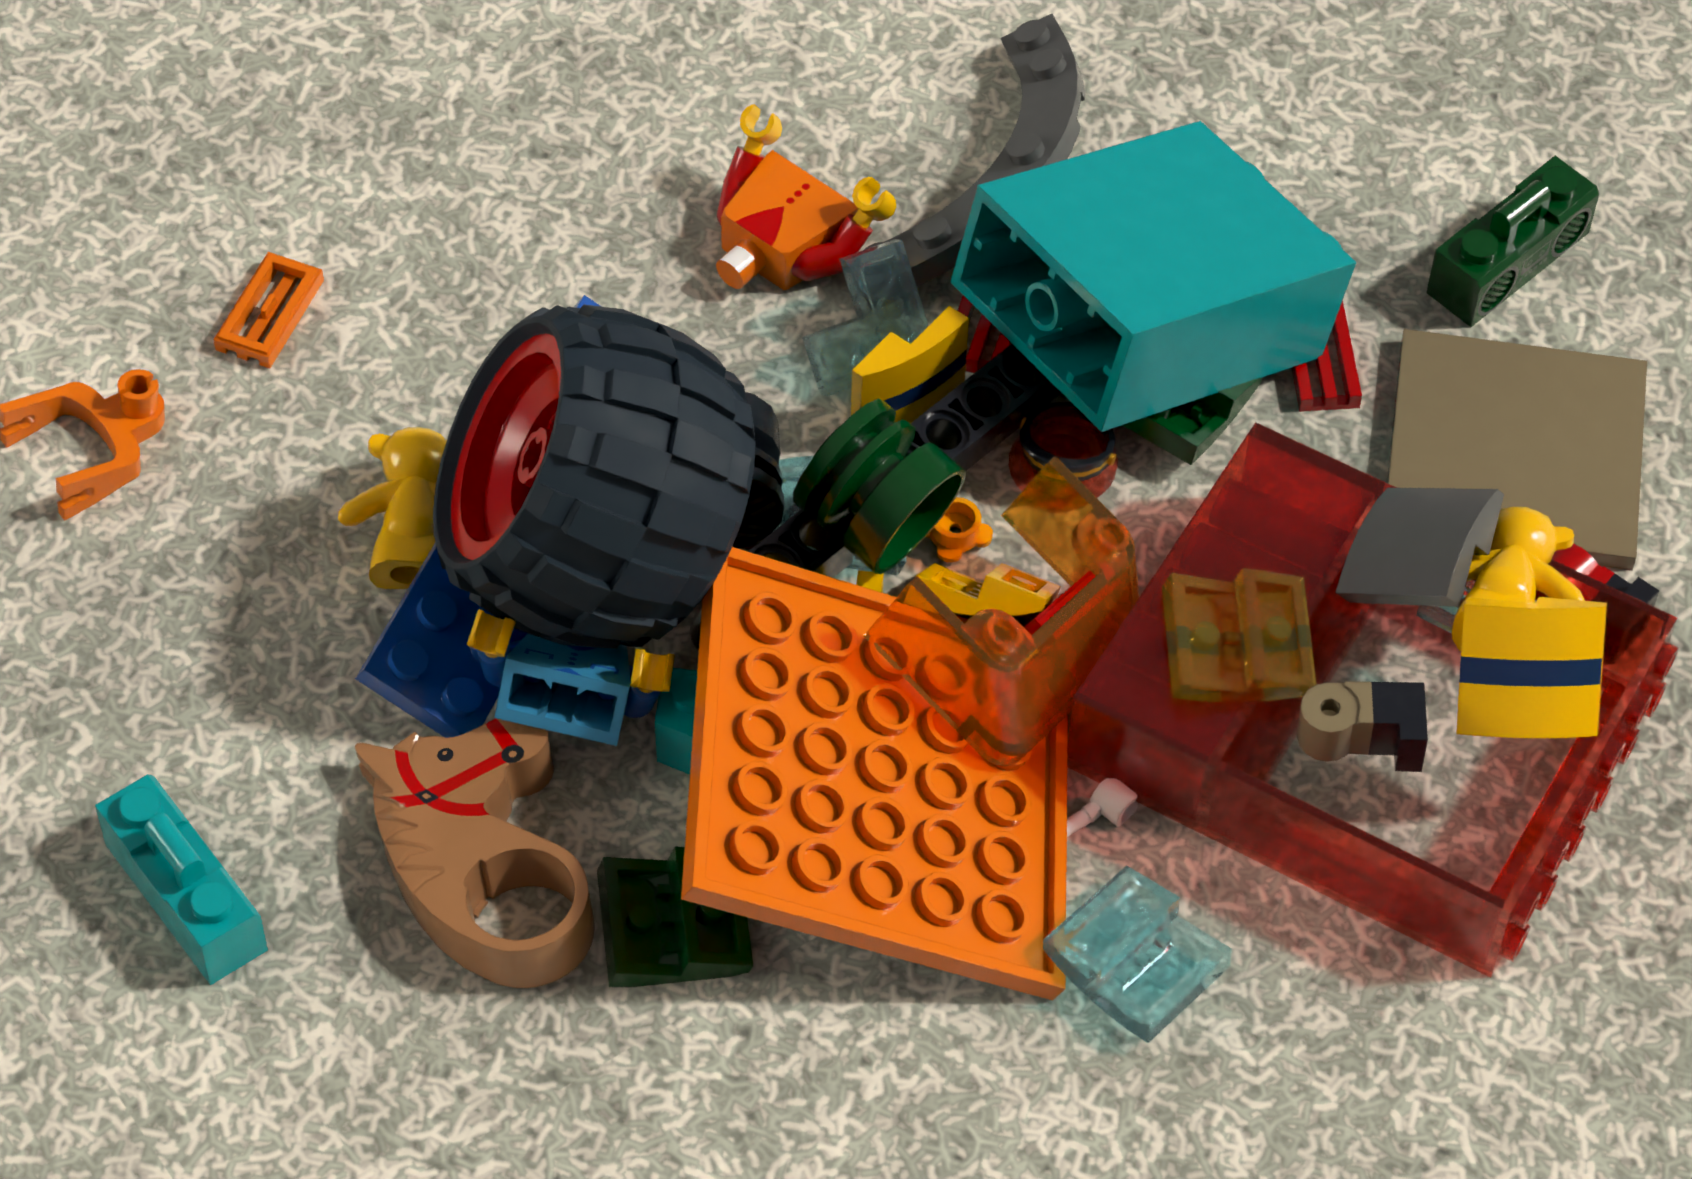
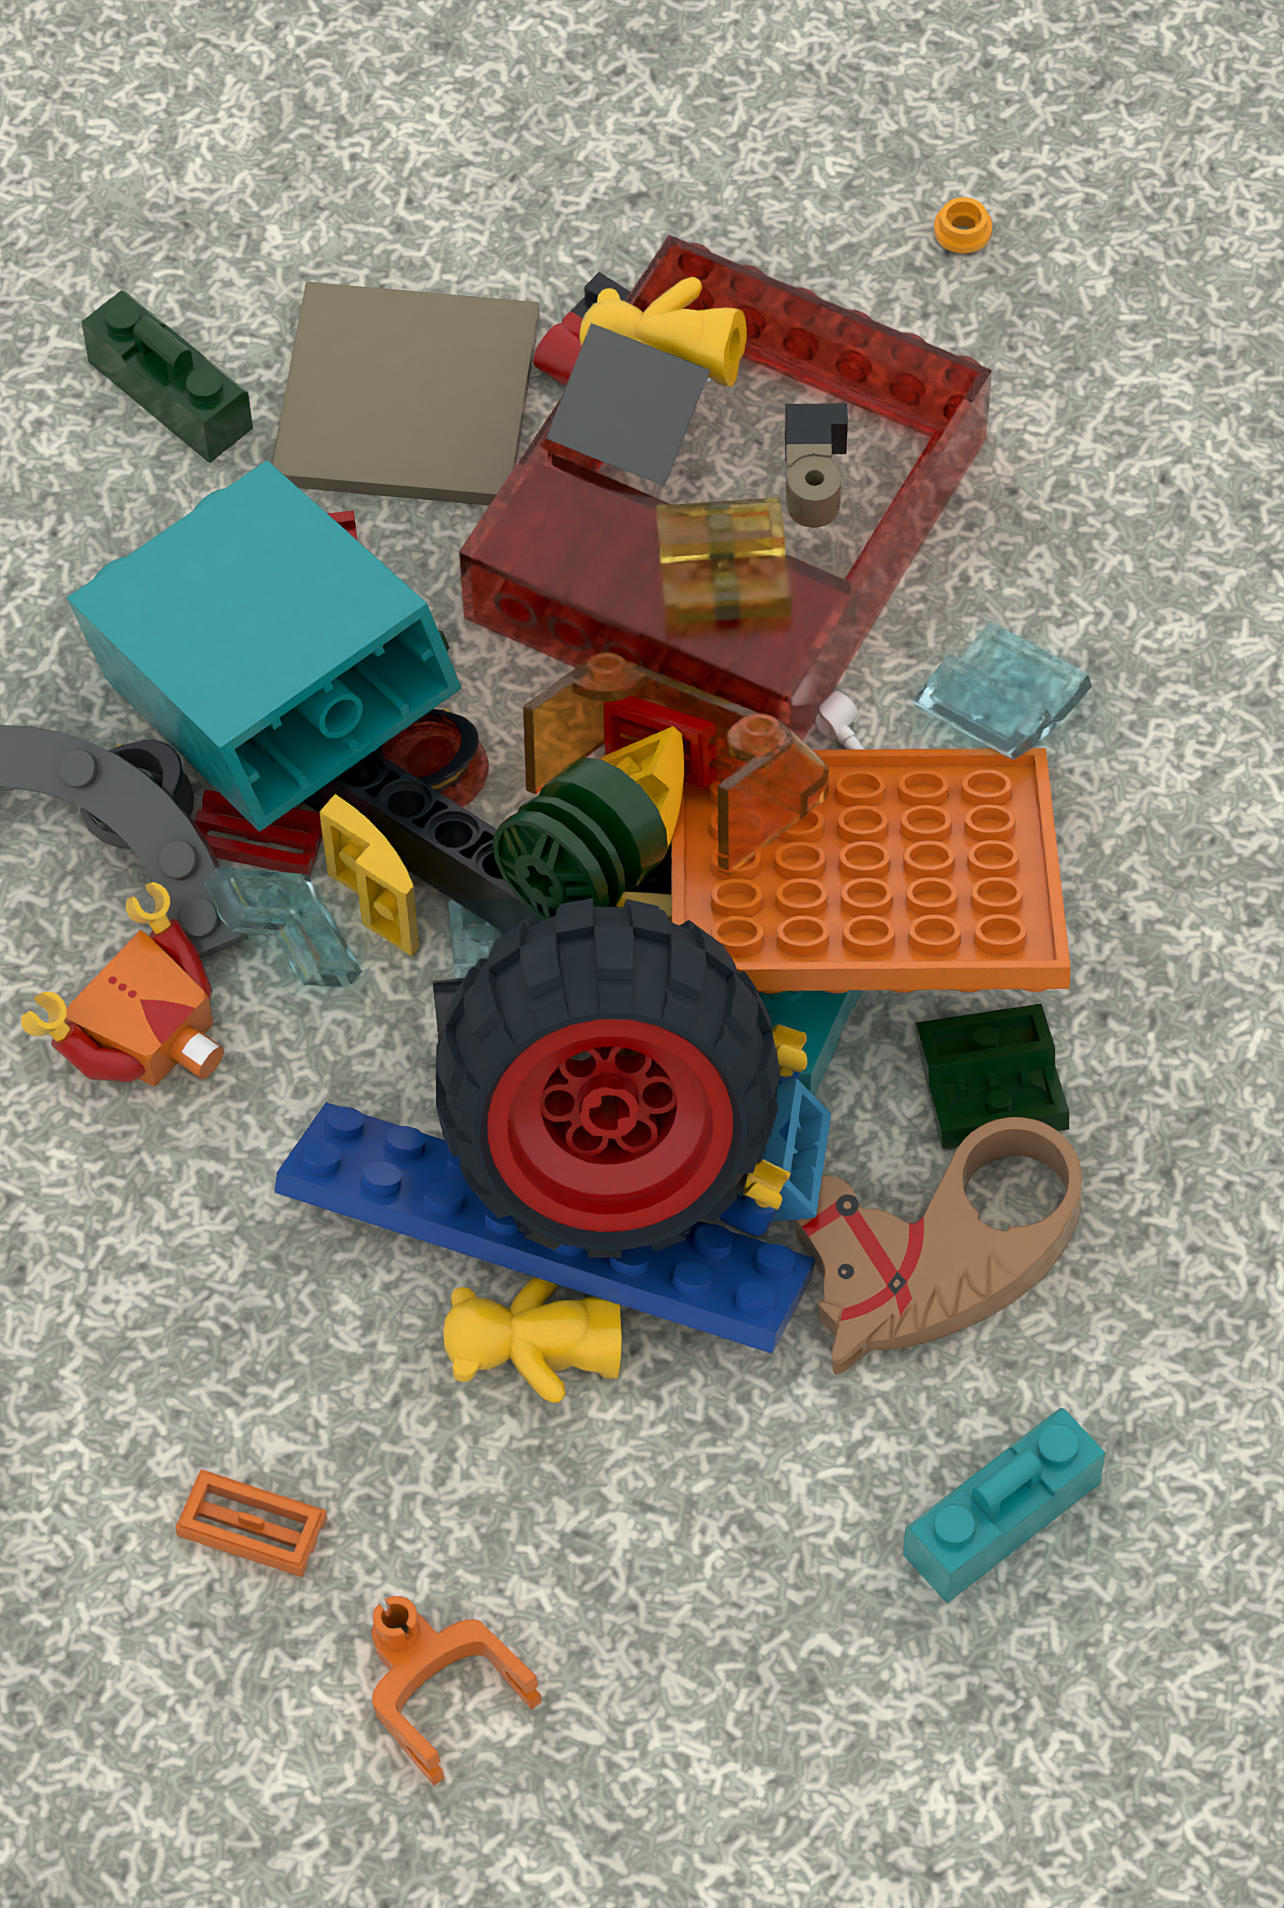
camera: 90 degrees left, 5 degrees up
(1531, 668) = (767, 324): yellow slope -> none

